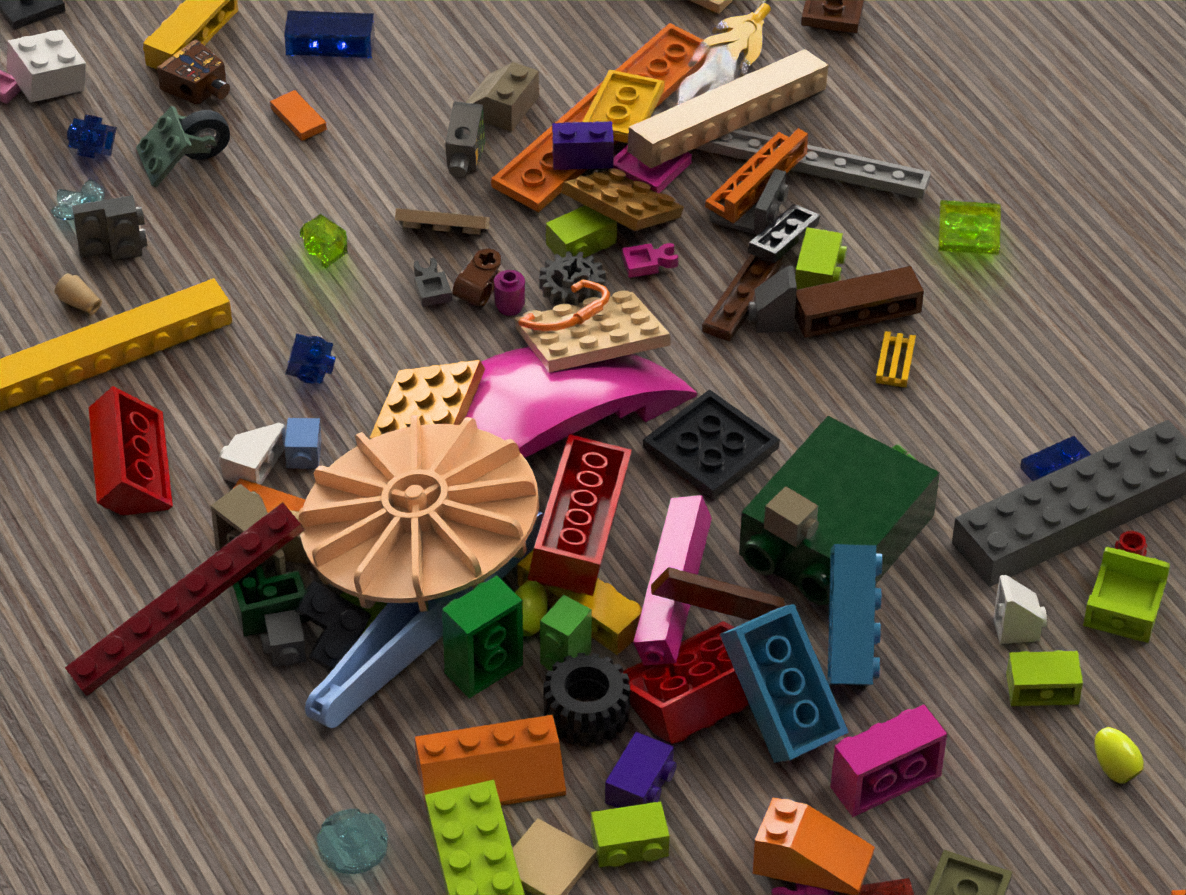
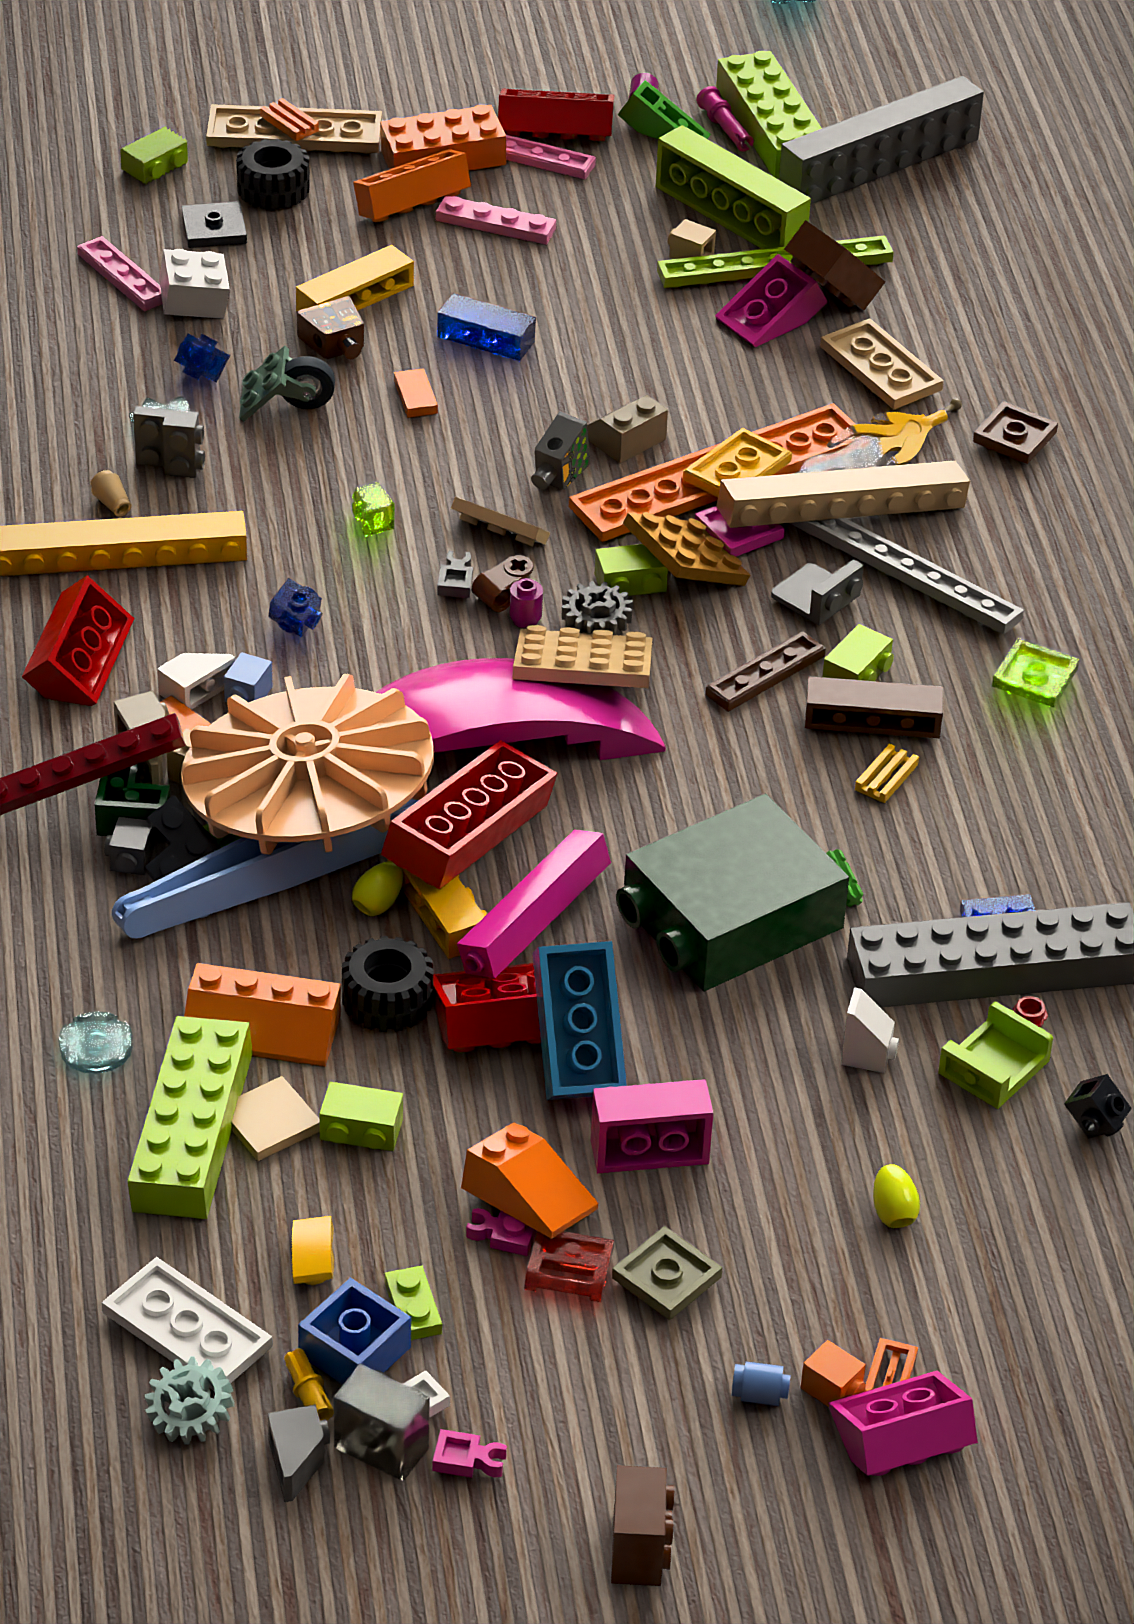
camera: 20 degrees right, 5 degrees down
(433, 393) = (398, 668): plate -> none
(483, 636) = (310, 893): green brick -> none
(565, 632) = (397, 912): bright green brick -> none
(579, 317) = (572, 638): orange piece -> none
(582, 145) = (671, 488): dark purple brick -> none
(640, 772) = (403, 1063): dark purple brick -> none
(645, 260) = (682, 612): dark pink plate -> none
(711, 444) = (649, 795): black plate -> none
(714, 594) = (555, 919): reddish brown tile -> none
(742, 197) = (870, 550): orange fence -> none
(775, 303) = (785, 685): dark grey slope -> none
(783, 233) = (833, 624): black plate -> none
(791, 517) = (666, 869): dark tan brick -> none
(853, 615) = (681, 979): dark azure brick -> none
(1044, 678) = (862, 1104): lime brick -> none

